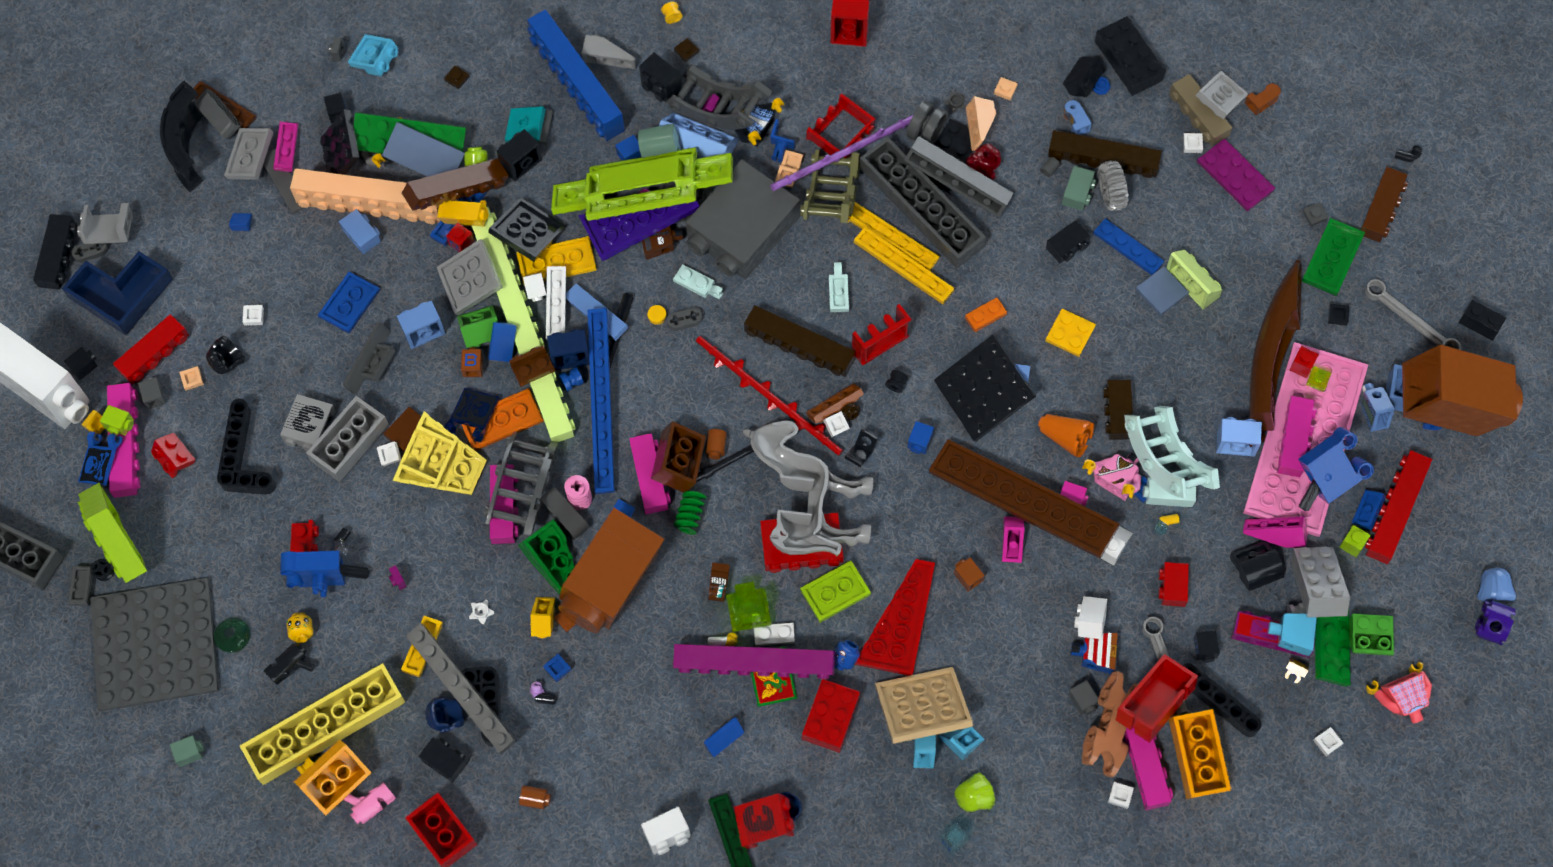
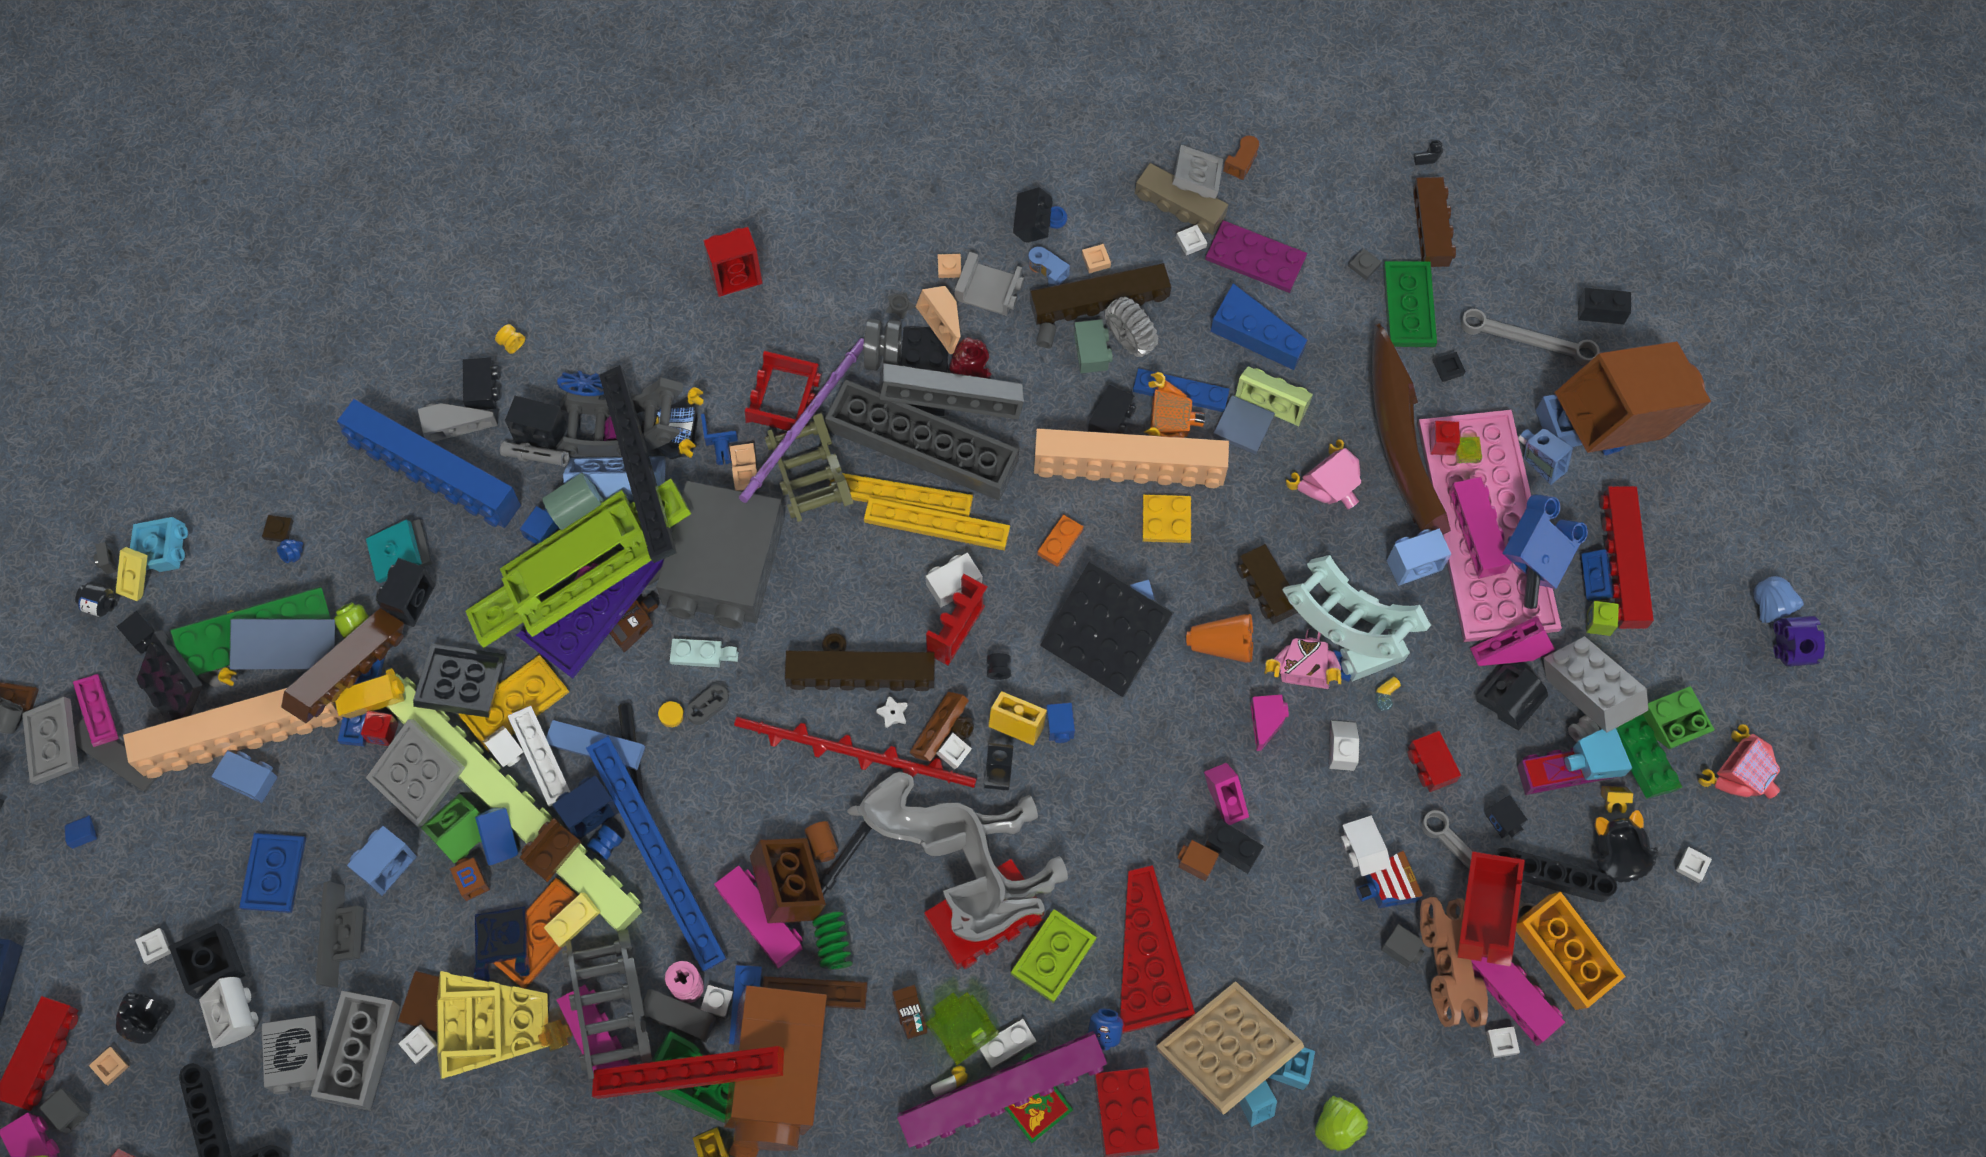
camera: 30 degrees left, 0 degrees up
(280, 377) = (228, 1012): none -> white brick
(281, 339) = (206, 959): none -> black brick
(318, 73) = (95, 599): none -> black head
(348, 66) = (131, 573): none -> light yellow plate
(458, 95) = (290, 550): none -> blue plate
(478, 488) = (555, 1035): none -> clear yellow gear
(525, 418) = (572, 919): none -> light yellow plate
(549, 546) = (688, 1072): none -> red plate
(594, 516) = (717, 1001): none -> white plate
(636, 35) = (479, 383): none -> black brick
(649, 98) = (534, 453): none -> light grey pin
(672, 546) = (839, 993): none -> reddish brown tile
(686, 49) = (548, 375): dark brown plate -> none
(706, 64) = (582, 384): none -> blue wheel
(712, 133) = (637, 464): none -> black plate
(791, 312) = (834, 638): none -> dark brown plate
(807, 384) = (889, 718): none -> white plate
(838, 290) = (875, 587): light aqua plate -> none
(887, 305) = (946, 580): none -> white brick
(891, 421) = (1017, 718): none -> yellow brick
(998, 576) = (1234, 846): none -> black brick
(1024, 498) = (1217, 740): reddish brown plate -> none
(1025, 114) = (988, 286): none -> light grey panel
(1064, 277) = (1131, 457): none -> light nougat brick
(1110, 260) = (1171, 410): none -> orange torso
(1115, 127) = (1096, 258): none -> light nougat plate
(1129, 56) = (1071, 169): black brick -> none
(1205, 355) = (1332, 478): none -> bright pink torso
(1206, 226) = (1257, 329): none -> blue wedge
(1281, 706) = (1625, 848): none -> black hair

